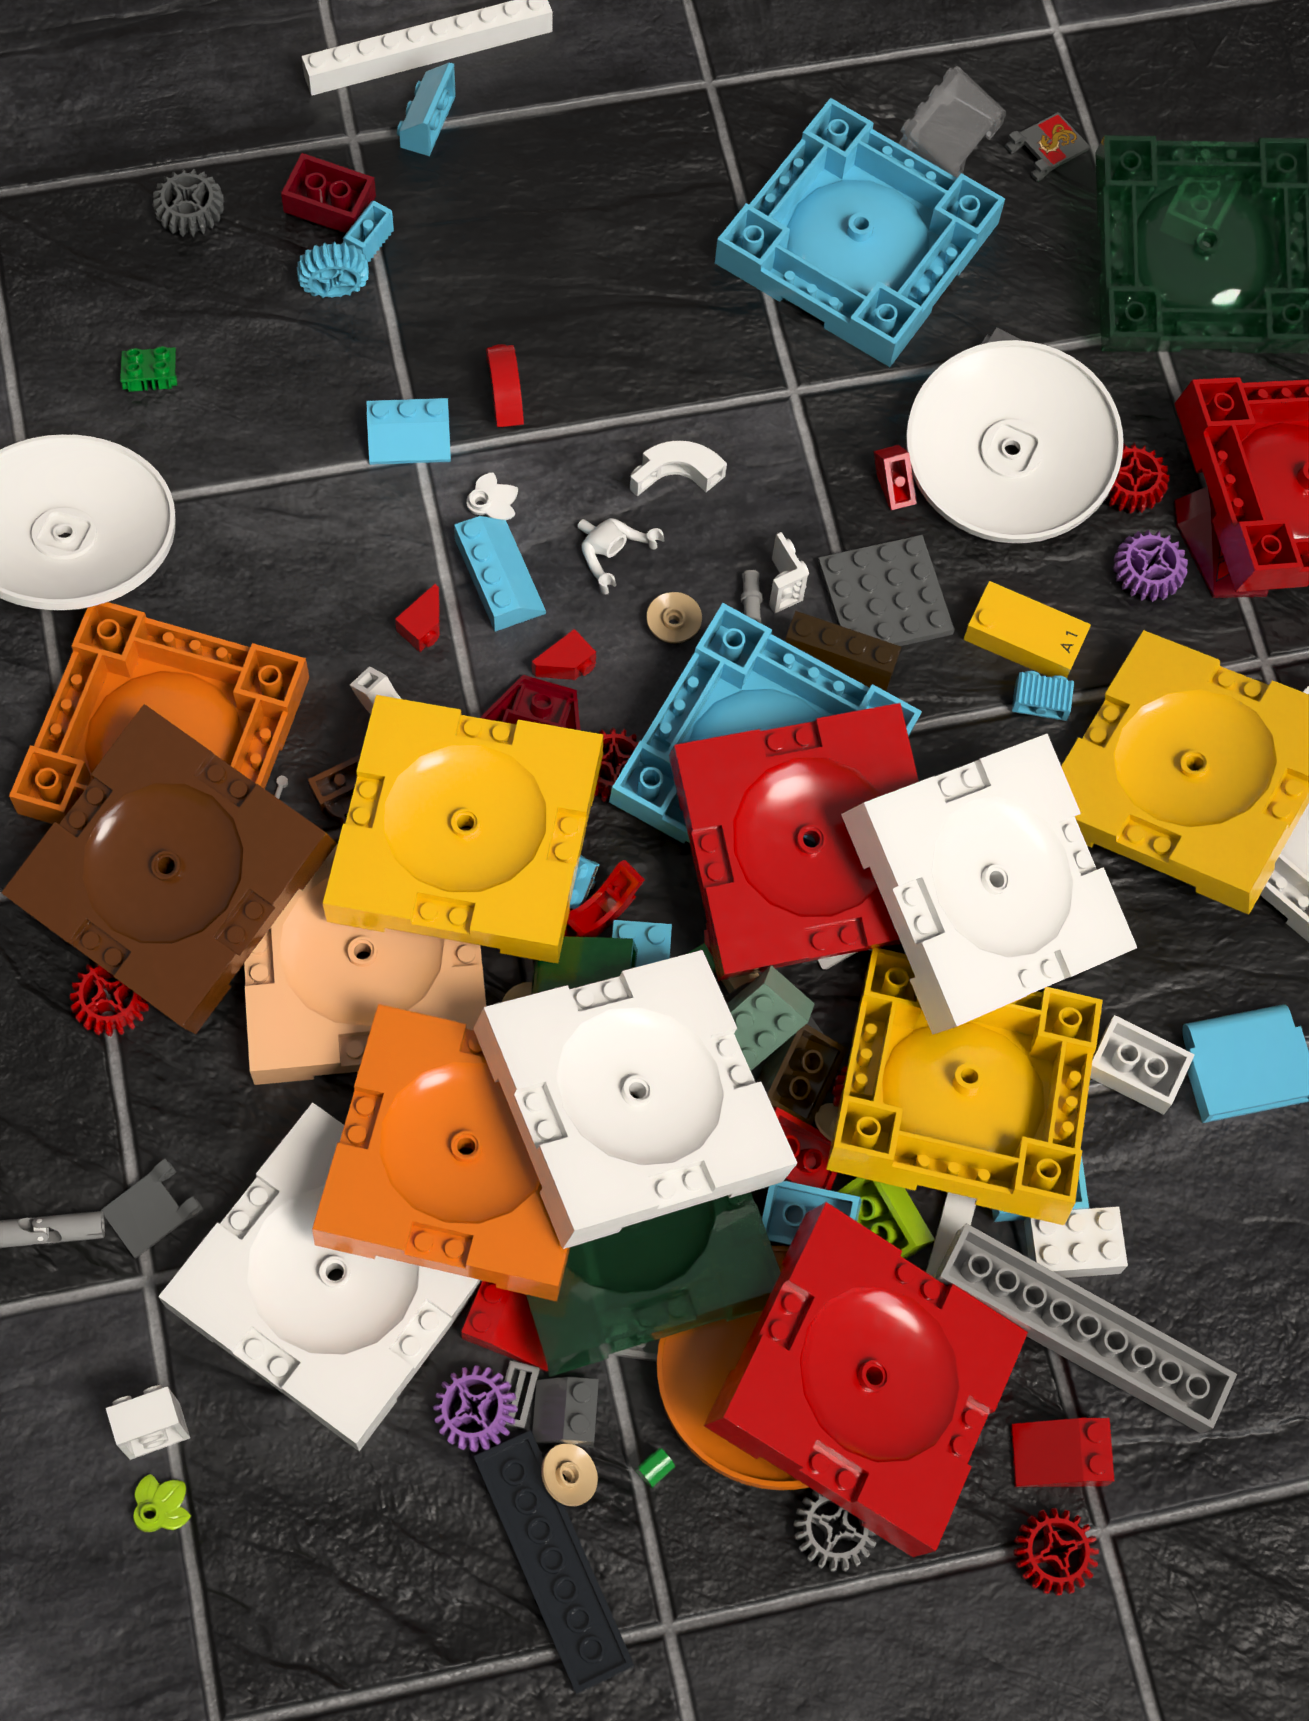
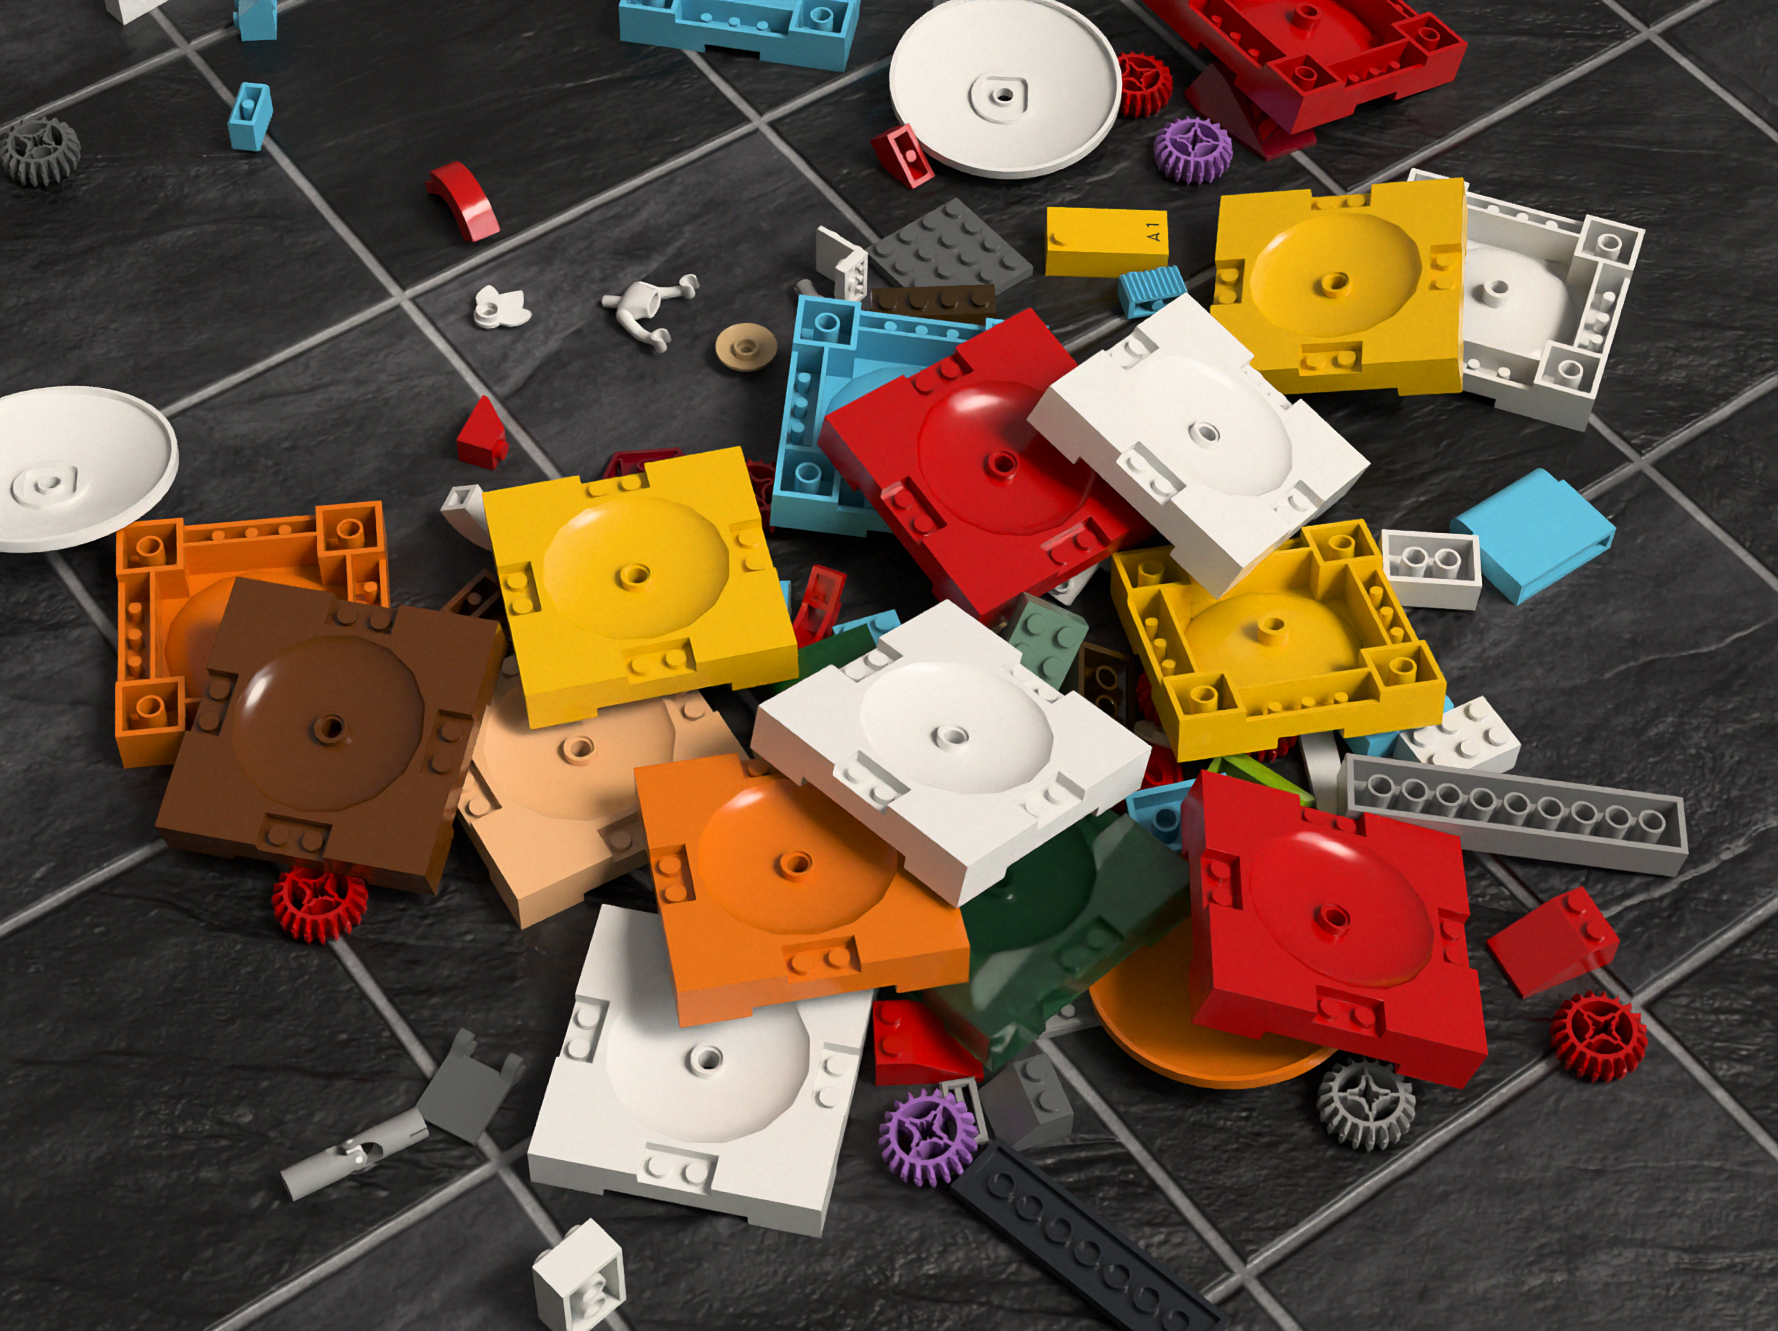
camera: 20 degrees left, 15 degrees down
(147, 365) = (77, 301): green hinge -> none
(327, 193) = (188, 96): dark red brick -> none
(332, 270) = (223, 161): medium azure gear -> none
(408, 431) = (381, 275): medium azure slope -> none
(498, 571) = (538, 370): medium azure slope -> none
(566, 659) = (654, 420): red slope -> none
(577, 1468) = (1062, 1162): tan dish -> none
(655, 1467) = (1147, 1121): green brick -> none
(678, 458) = (677, 210): white arch -> none

